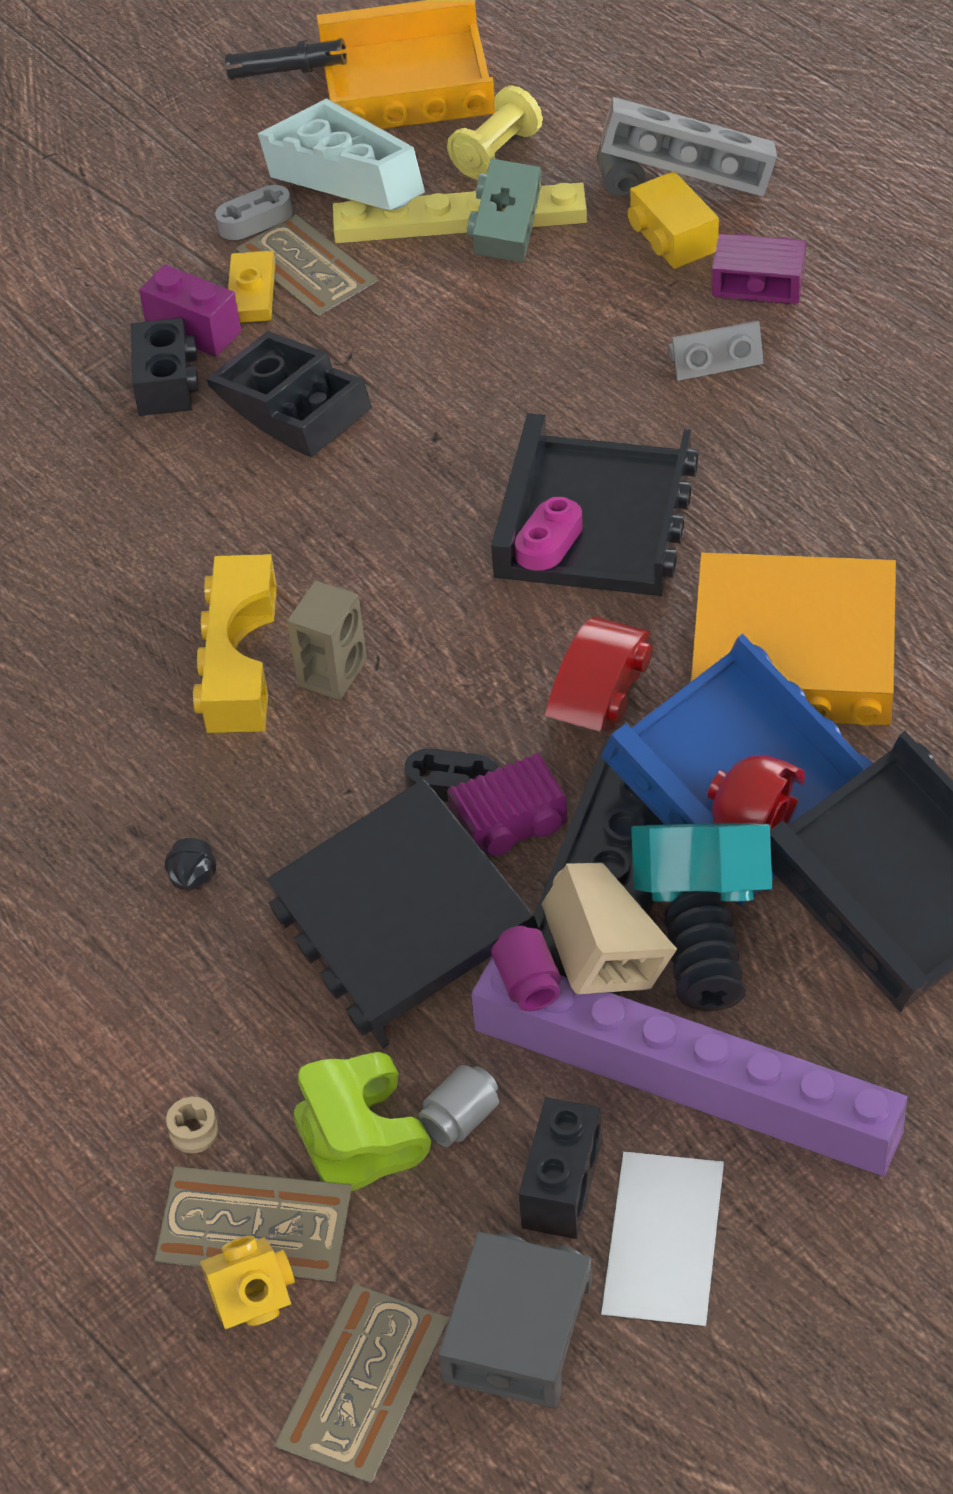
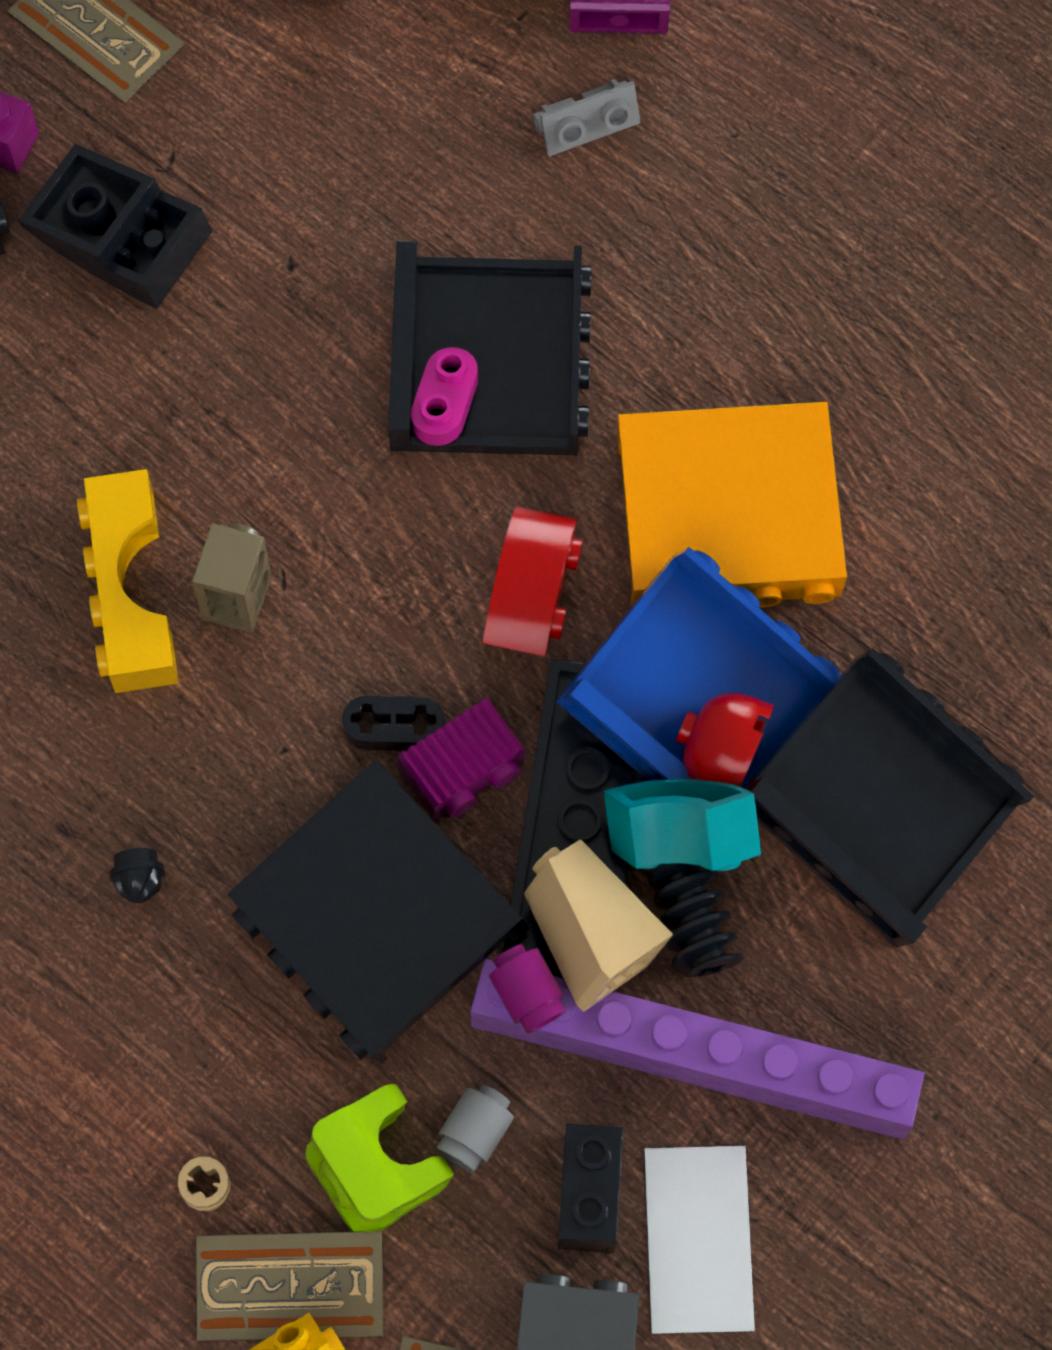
camera: 15 degrees left, 20 degrees up
(253, 283) = (40, 69): yellow plate -> none

